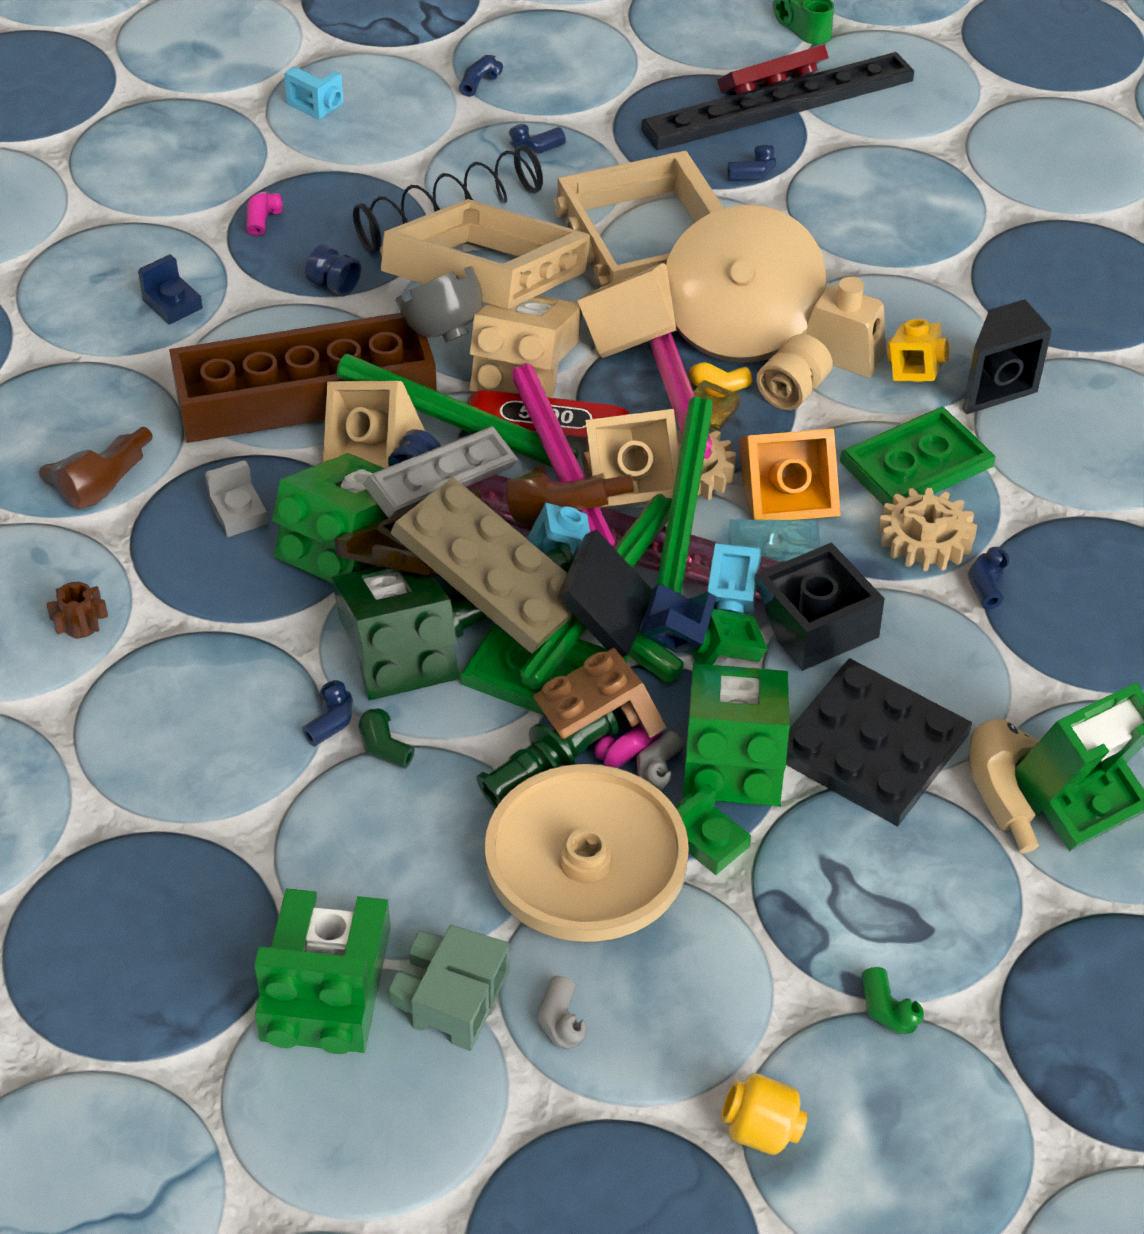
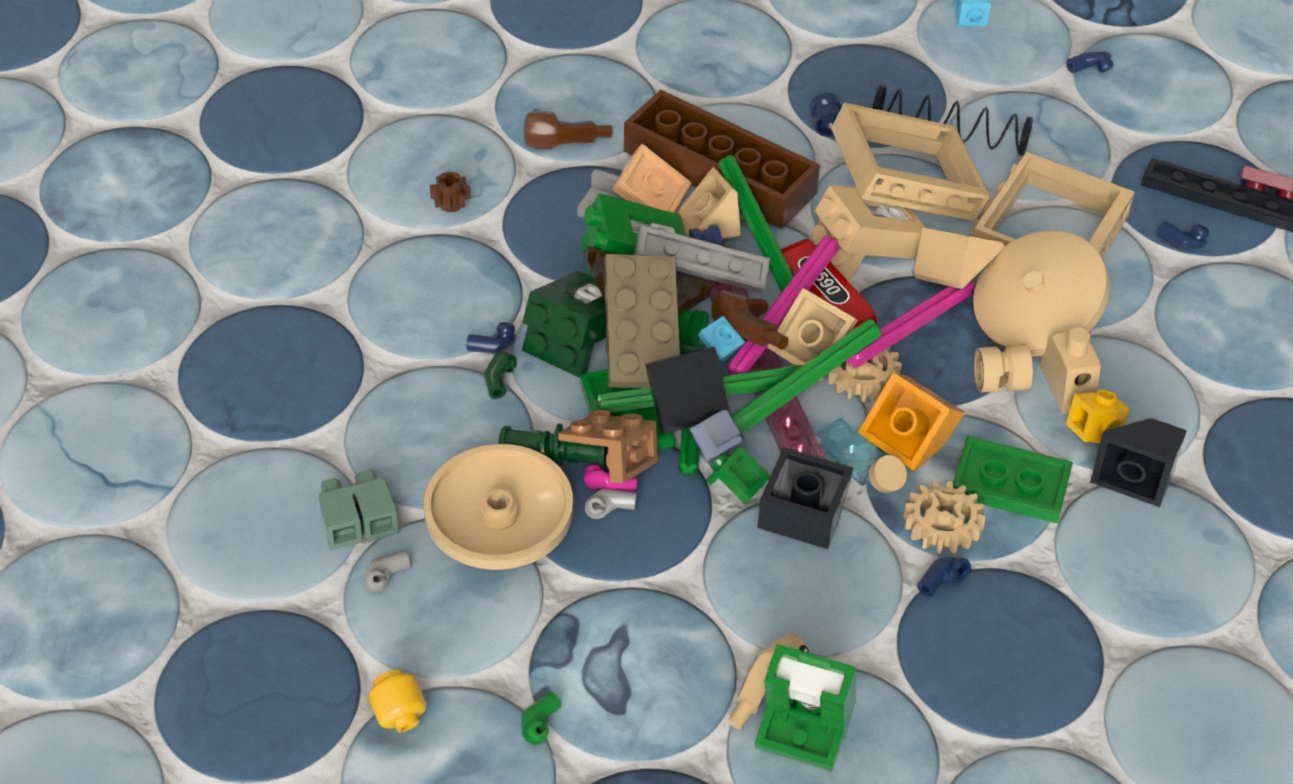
camera: 50 degrees right, 0 degrees up
(167, 291) = (727, 62): dark blue bracket -> none
(259, 208) = (841, 51): dark pink arm -> none
(270, 445) = (651, 181): none -> light nougat plate
(317, 987) = (309, 449): green brick -> none
(443, 305) = (820, 167): dark grey cylinder -> none
(538, 143) = (1064, 127): dark blue arm -> none
(711, 834) = (581, 556): green bracket -> none
(724, 402) = (928, 349): clear yellow plate -> none
(733, 380) = (956, 341): yellow arm -> none
(734, 577) = (775, 437): medium azure bracket -> none
(738, 733) = (659, 514): green brick -> none
(836, 529) = (887, 474): none -> tan tile
(874, 741) = (738, 595): black plate -> none

